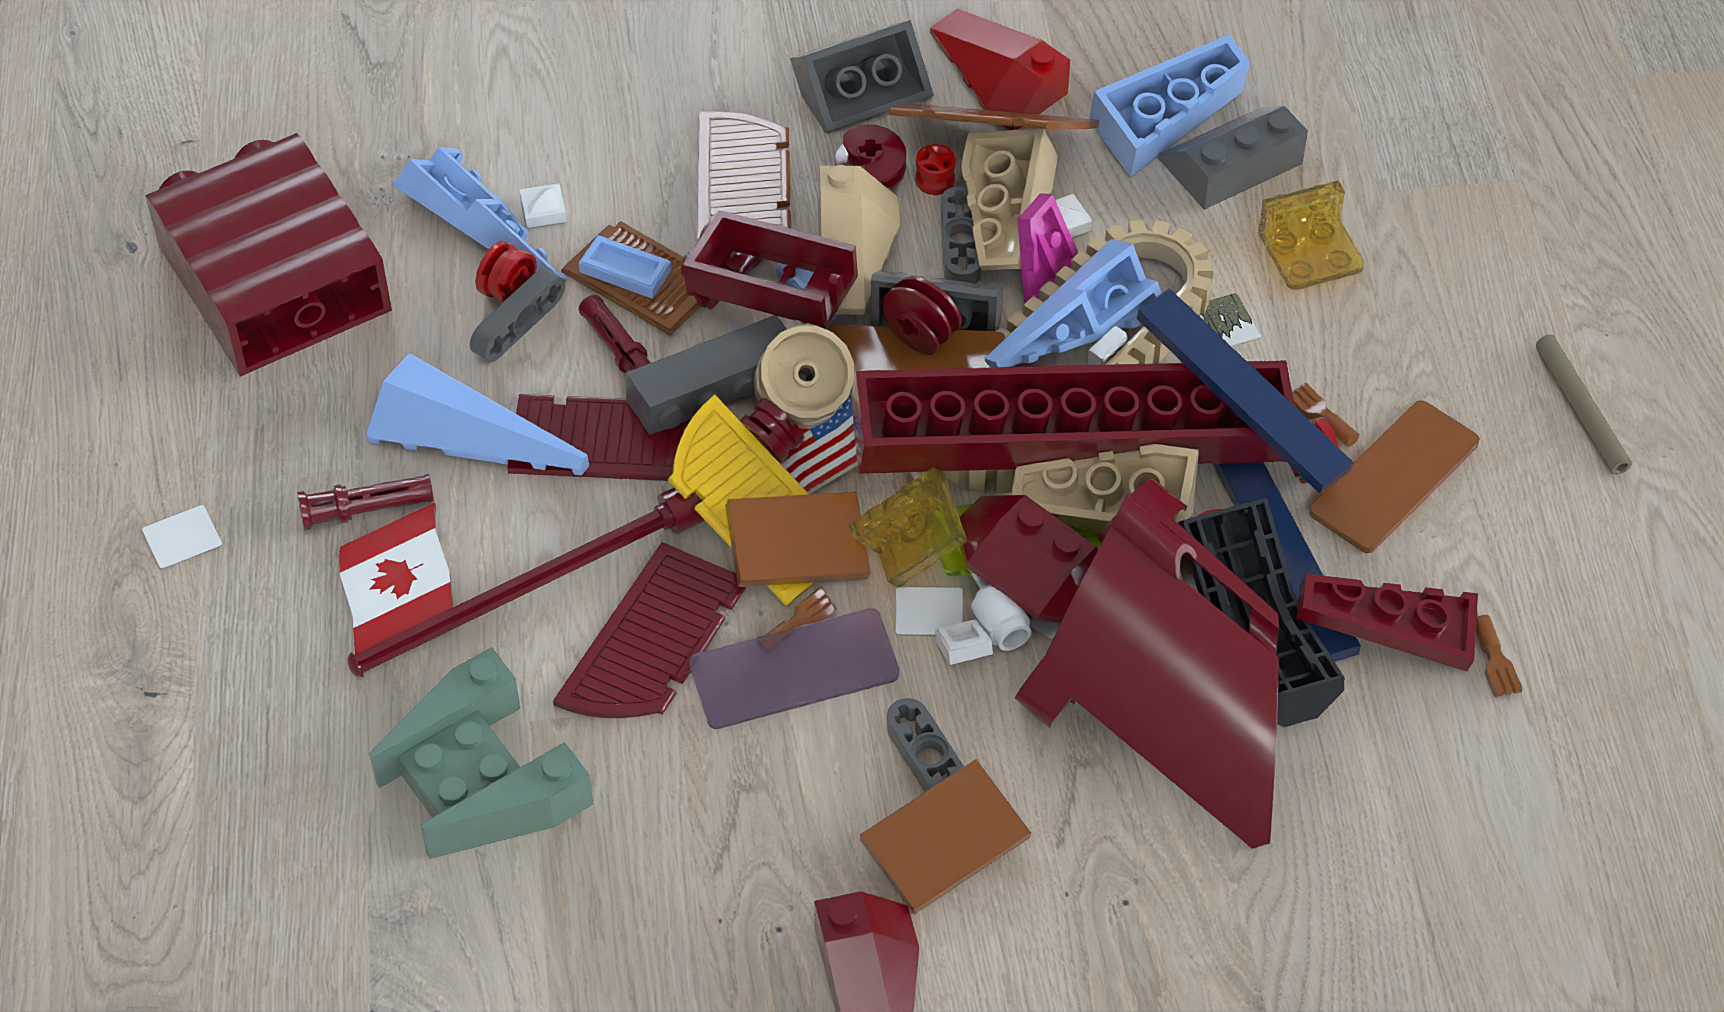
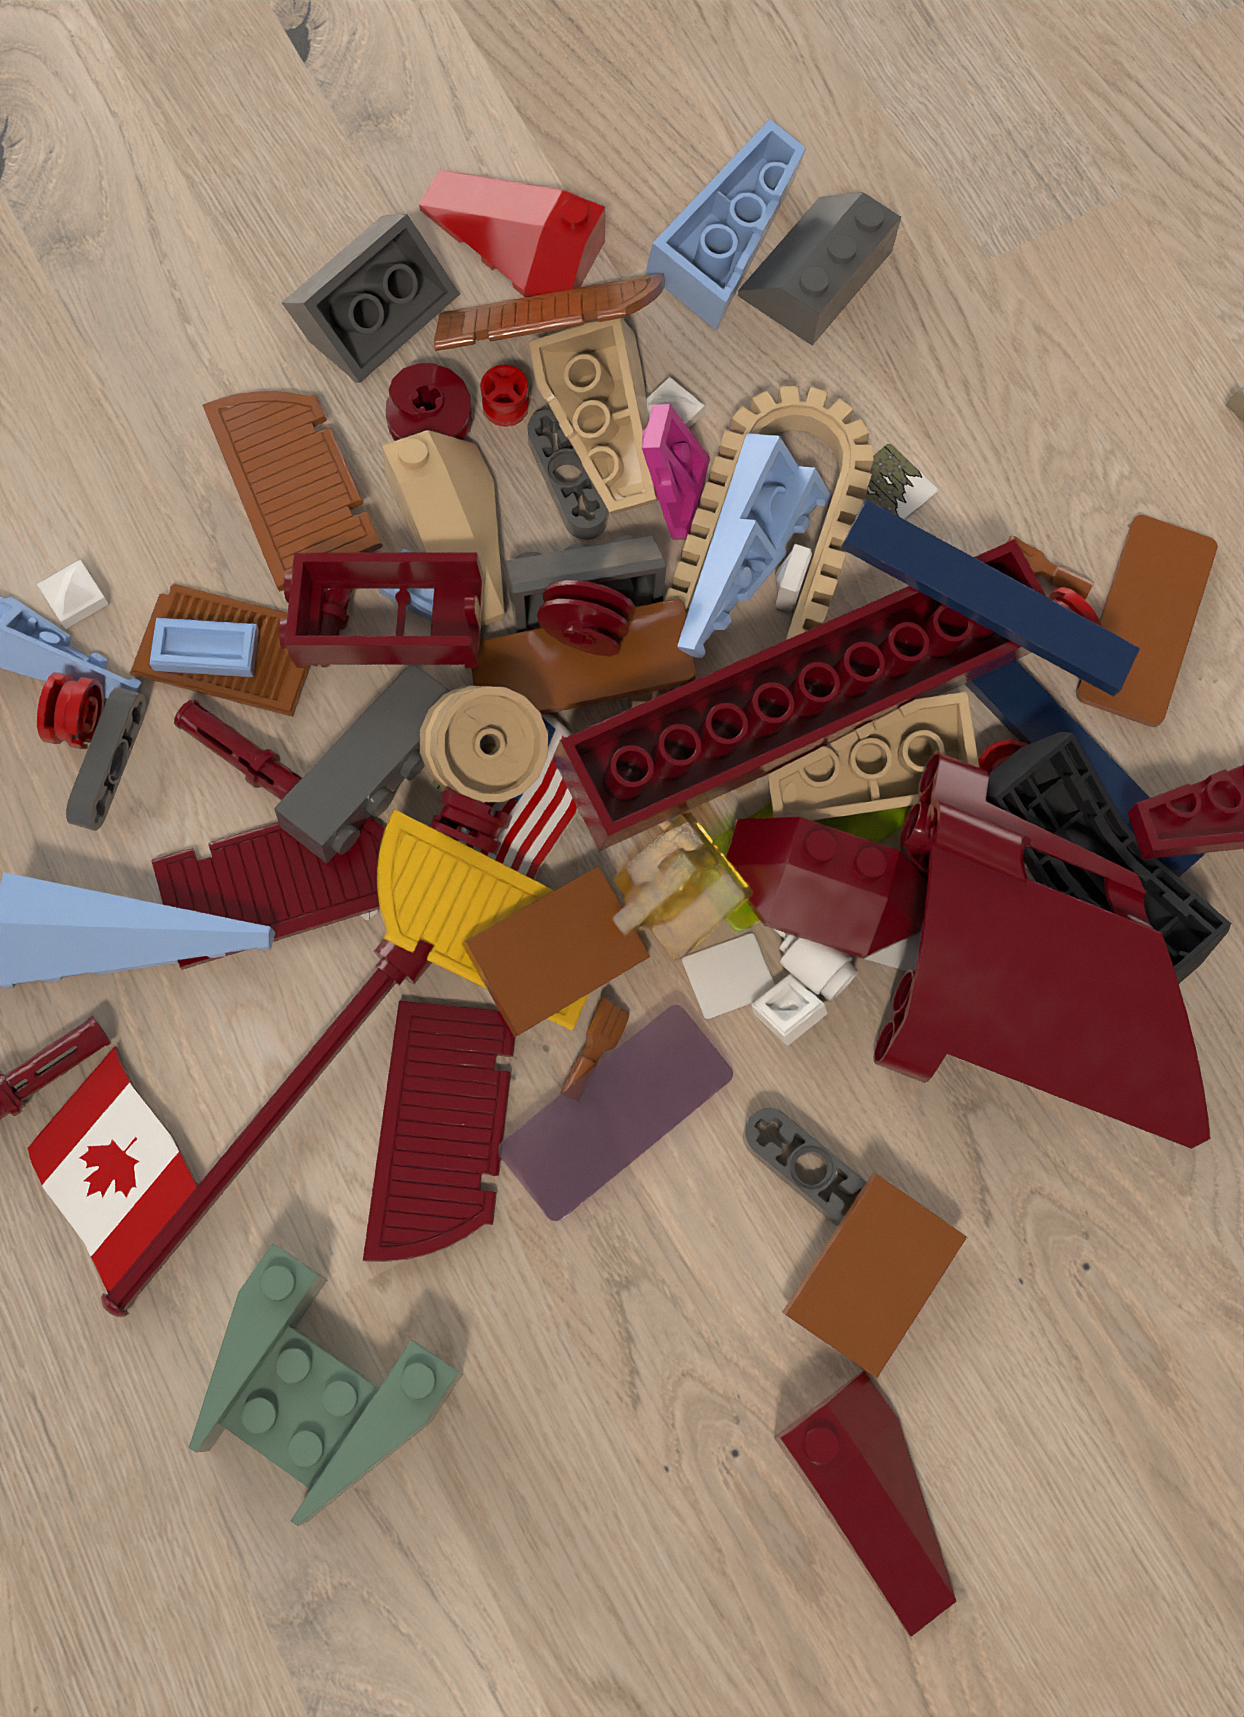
camera: 25 degrees left, 20 degrees up
(1308, 237) = (947, 351): clear yellow bracket -> none

